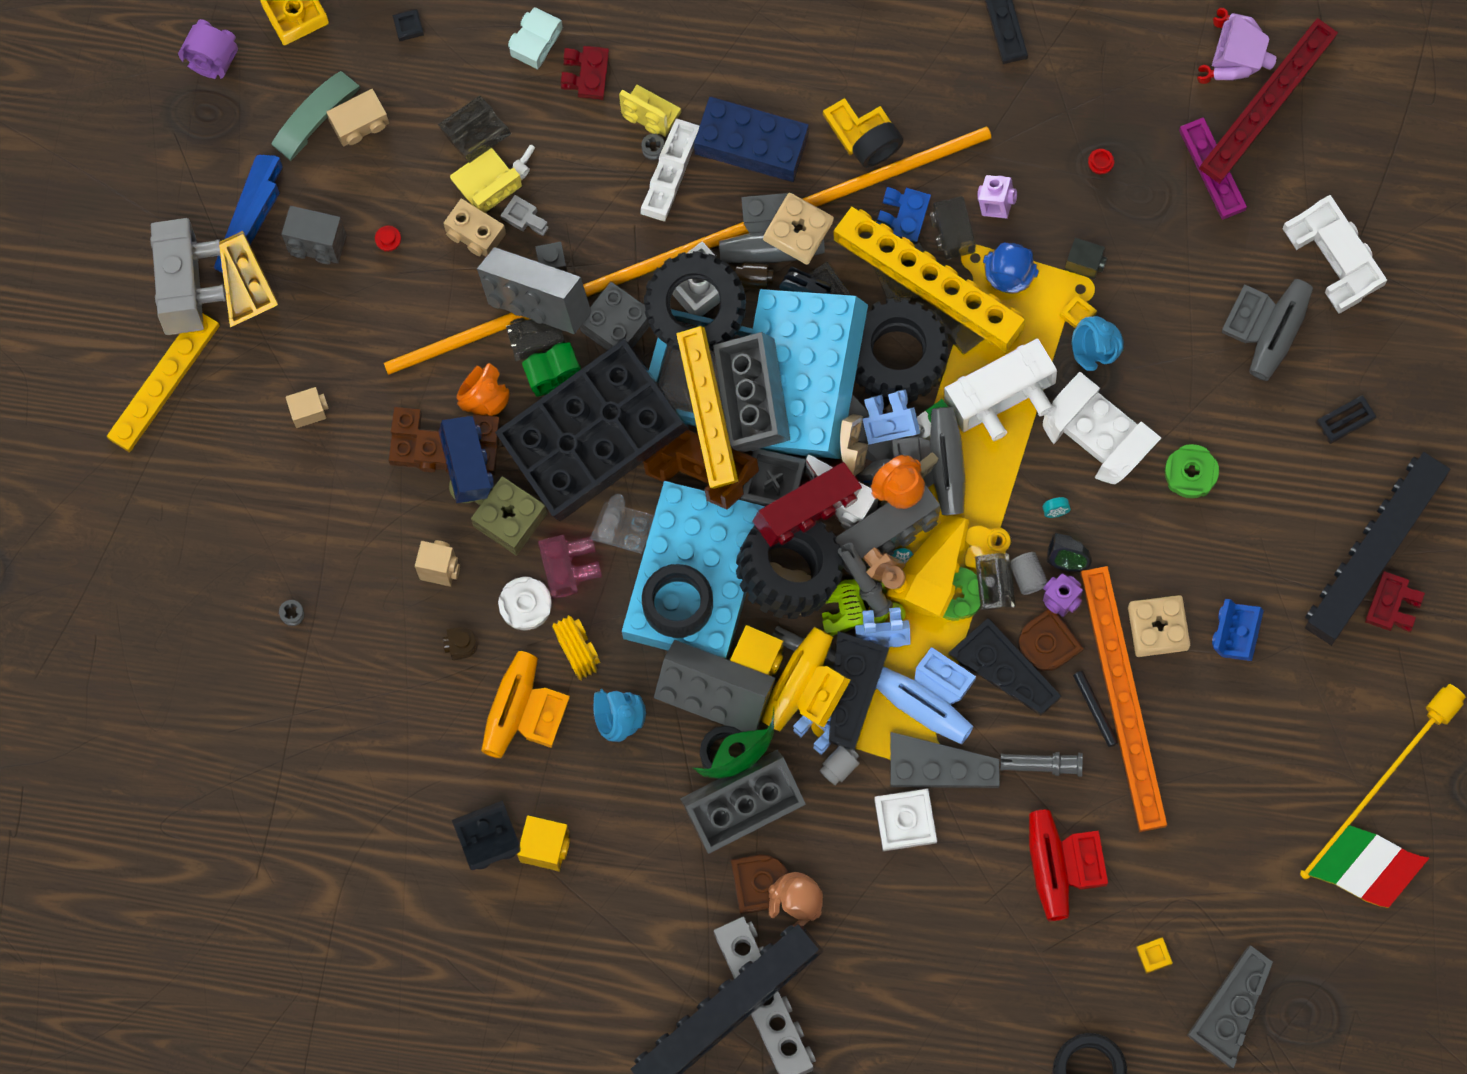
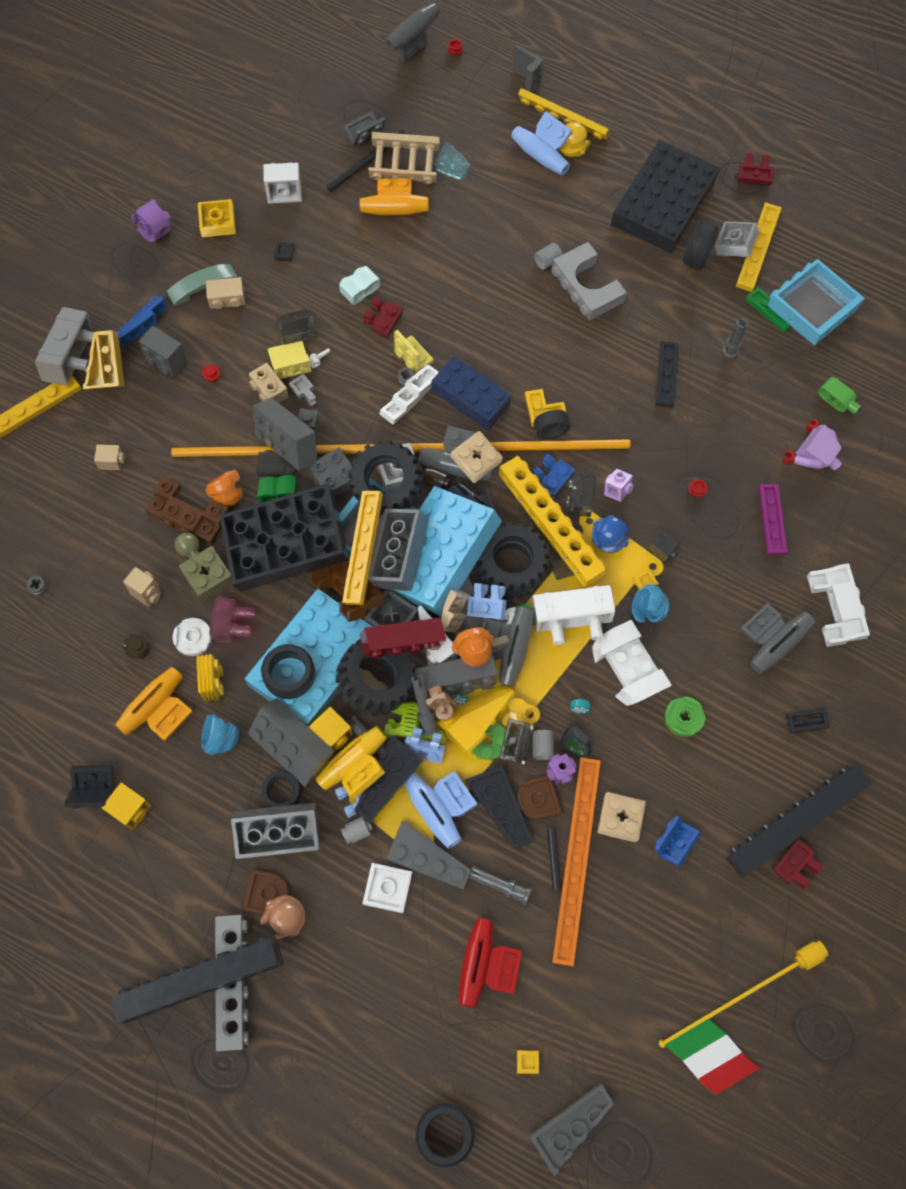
camera: 15 degrees right, 5 degrees down
(465, 459) = (190, 525): dark blue brick -> none
(622, 525) = (277, 608): clear hinge -> none
(755, 744) = (301, 793): green piece -> none
(1268, 101) = (825, 488): dark red plate -> none

